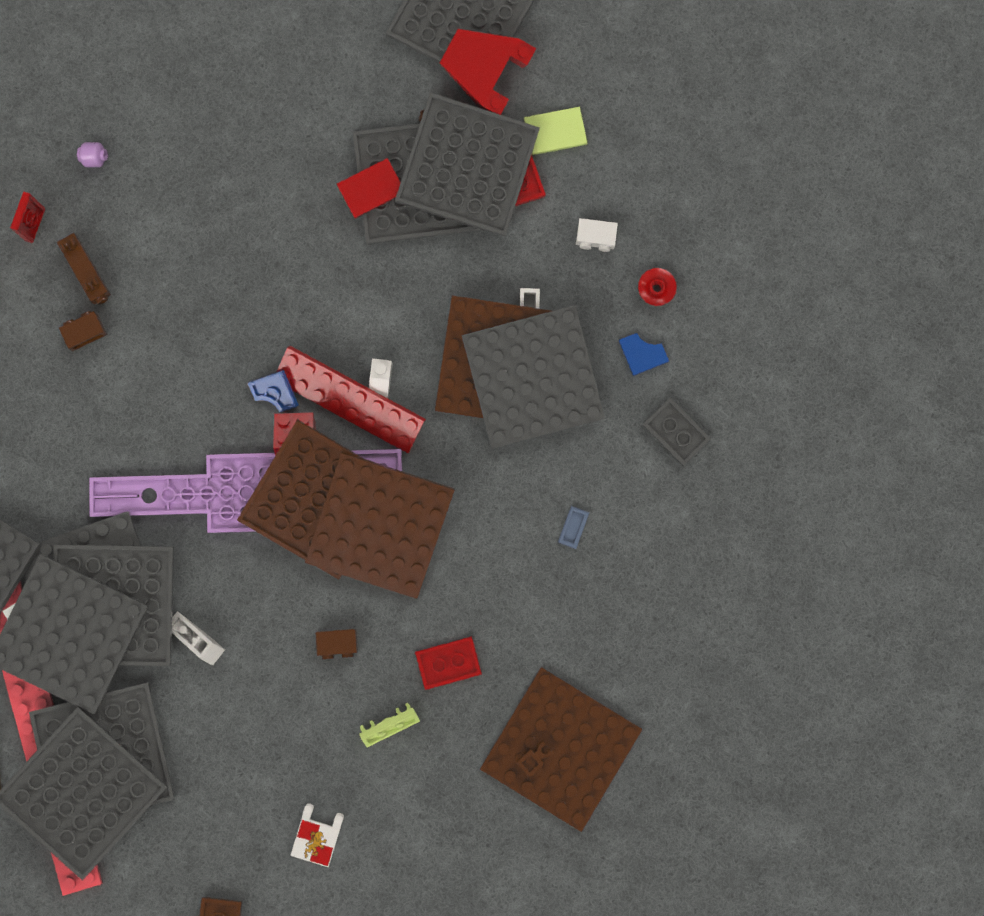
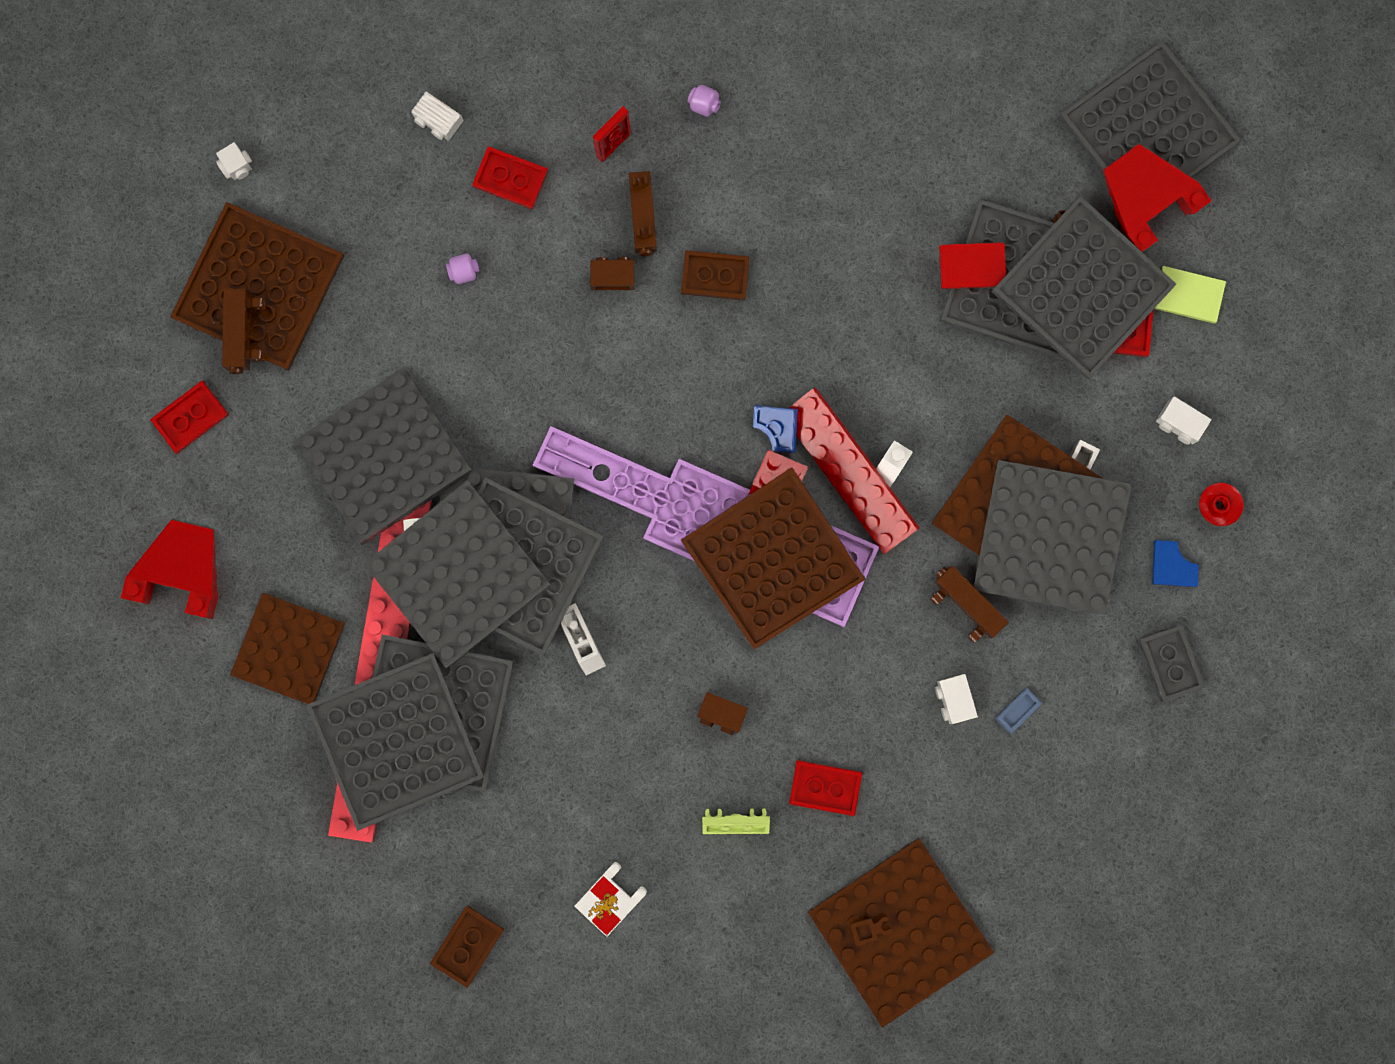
camera: 30 degrees right, 0 degrees up
(167, 292) = (715, 275): none -> reddish brown plate
(379, 525) = (823, 614): reddish brown plate -> none
(493, 458) = (970, 602): none -> reddish brown brick
(519, 542) = (956, 699): none -> white brick

